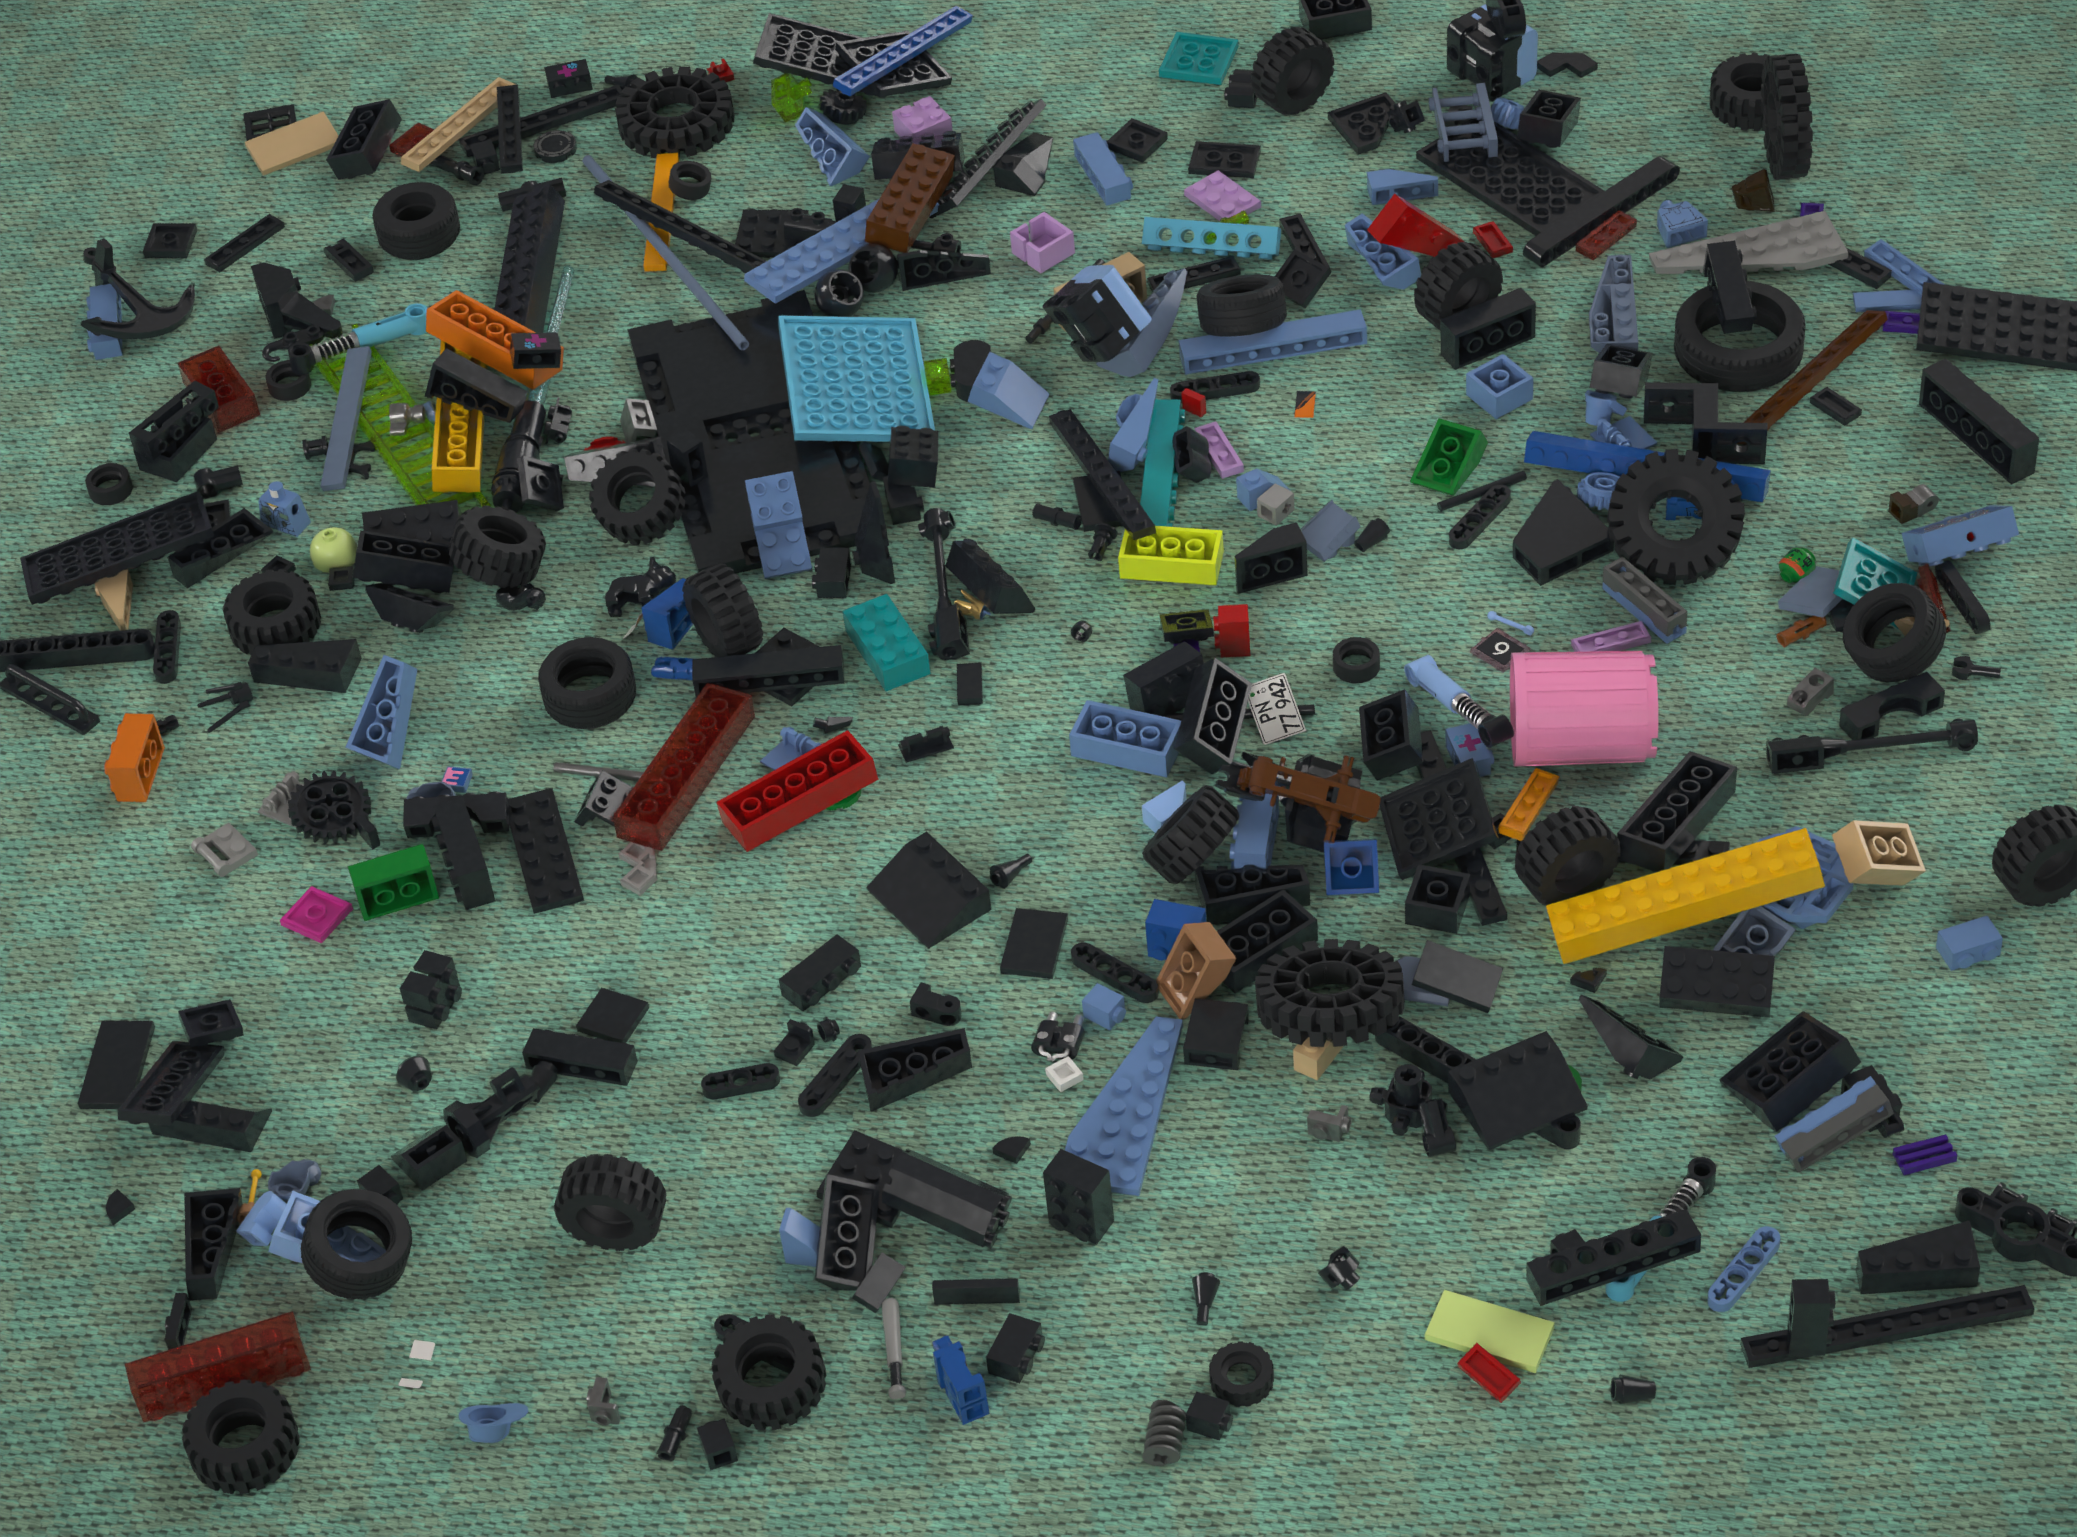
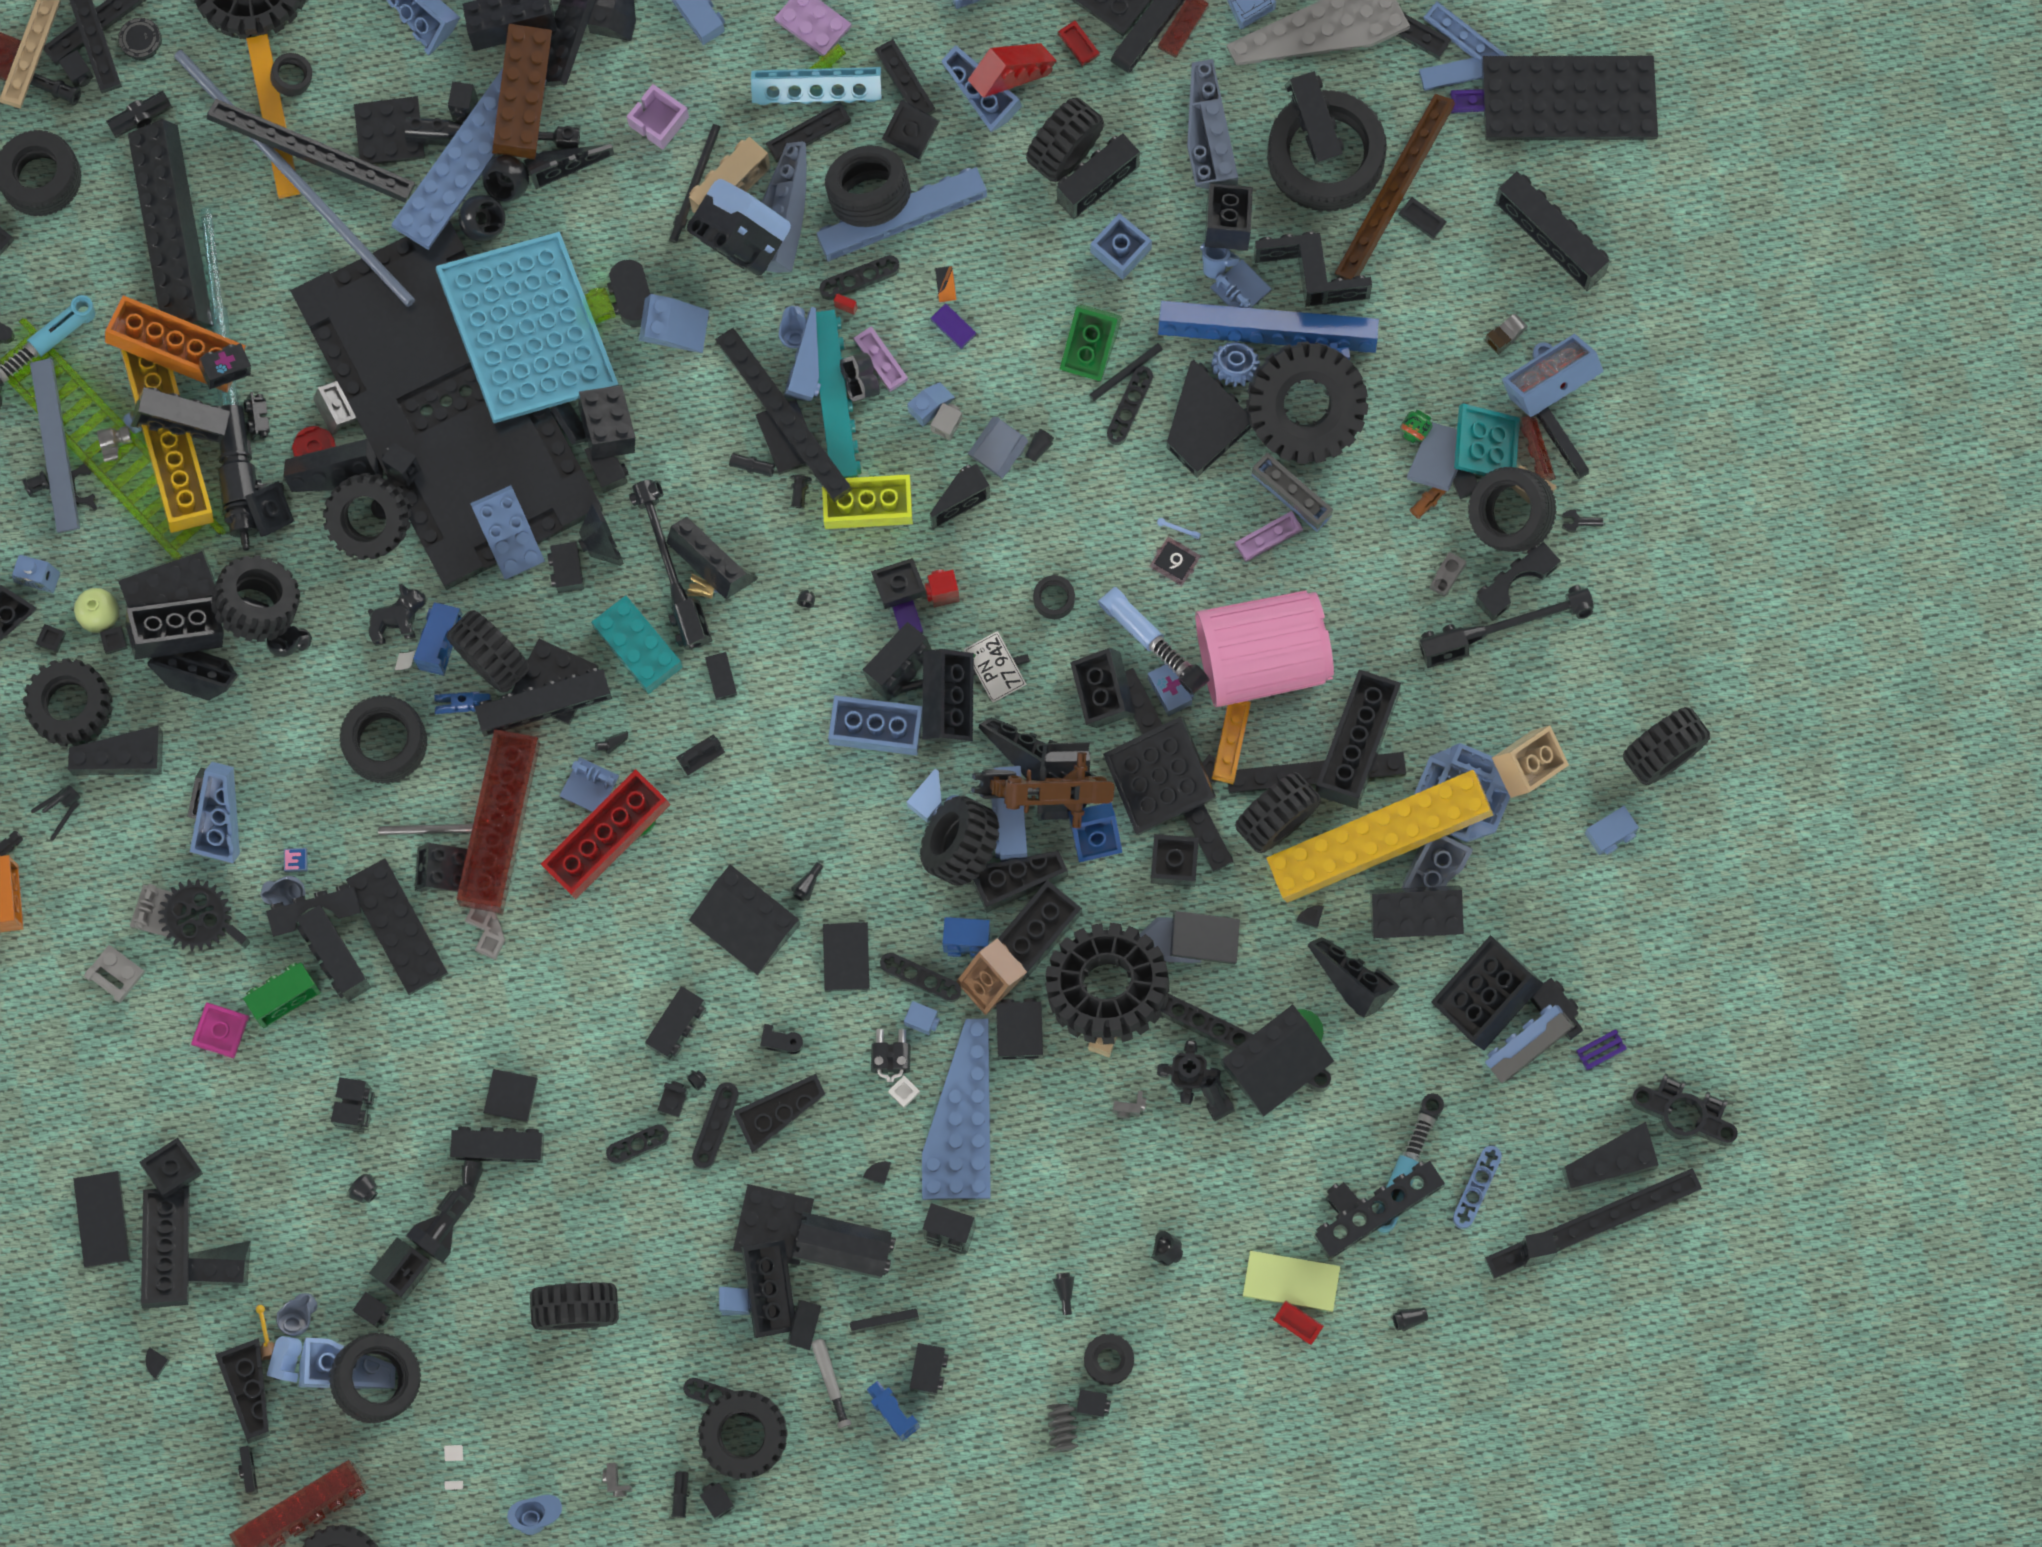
camera: 15 degrees left, 30 degrees up
(1304, 435) = (953, 326): none -> dark purple tile

